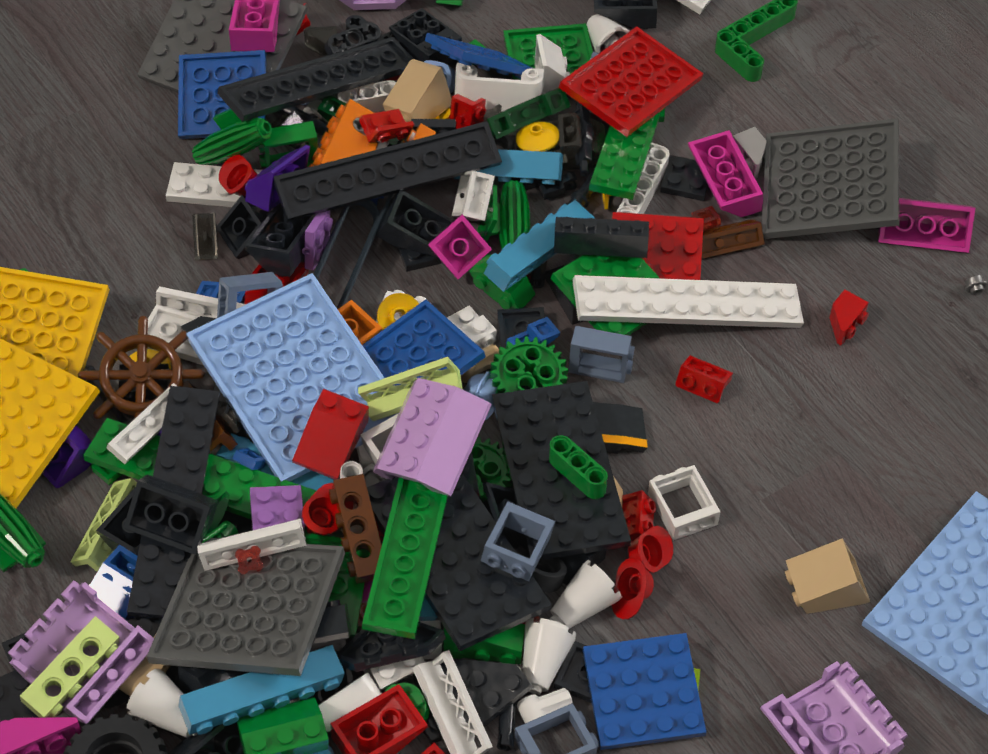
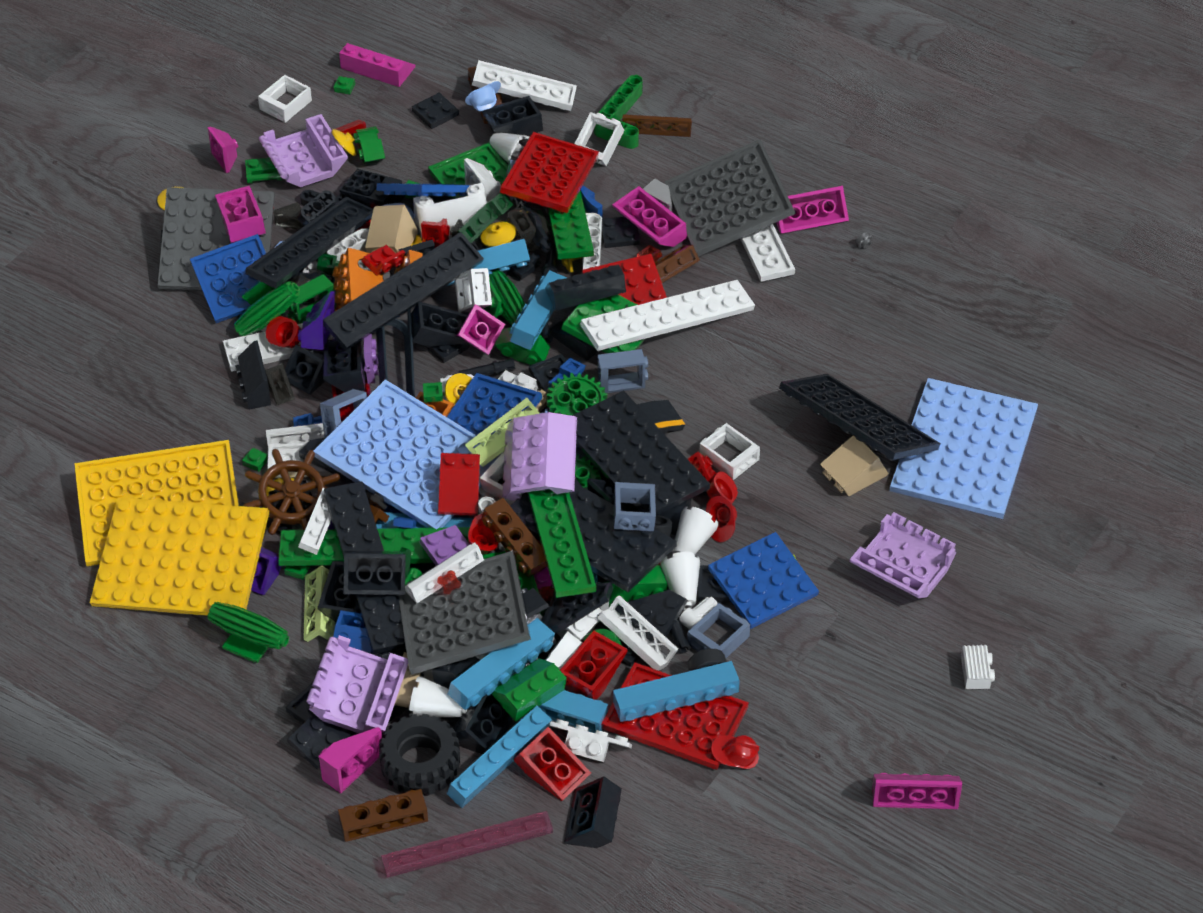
camera: 20 degrees left, 5 degrees down
(93, 634) = (365, 670): yellowish green brick -> none
(131, 315) = (255, 459): none -> green plate
(177, 224) = (253, 377): none -> black slope
(362, 306) = (432, 392): none -> green plate
(455, 298) = (492, 368): none -> black pin
(578, 467) = (650, 446): green beam -> none
(667, 129) = (590, 203): none -> blue slope
(703, 43) = (588, 128): none -> white window
(703, 378) = (702, 366): red bracket -> none
(793, 63) = (660, 125): none -> reddish brown fence
(846, 314) = (782, 290): red slope -> none
(849, 263) = (768, 254): none -> white plate
(862, 518) = (859, 416): none -> black plate

